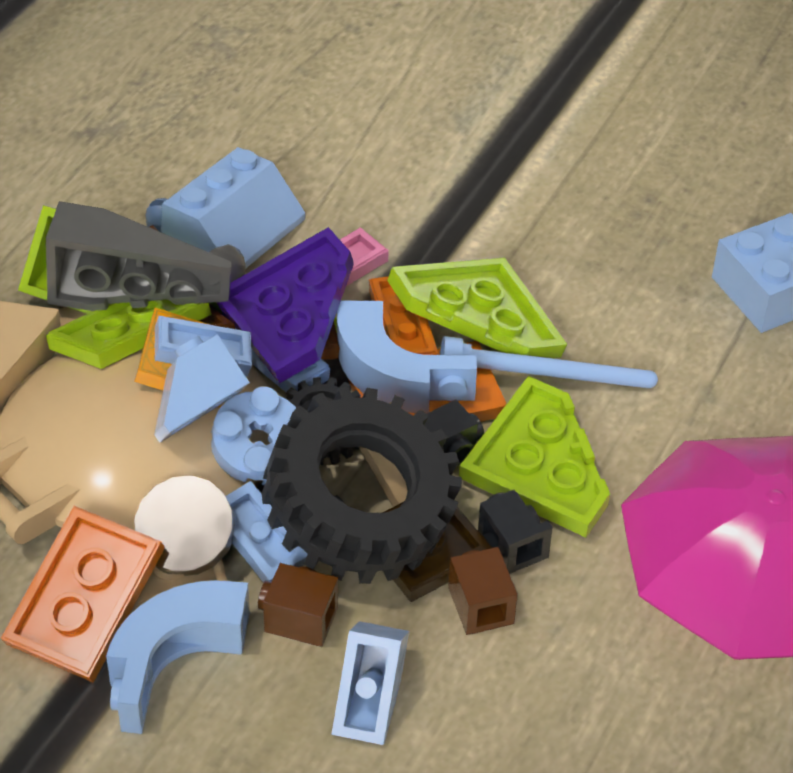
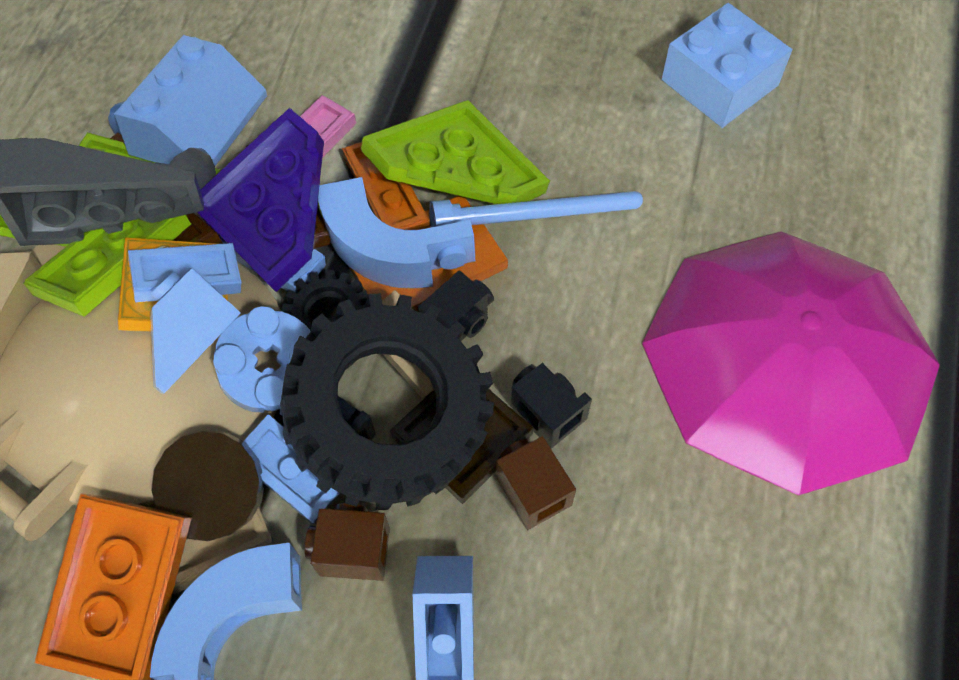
camera: 10 degrees left, 15 degrees up
(542, 456) = (555, 313): lime plate -> none

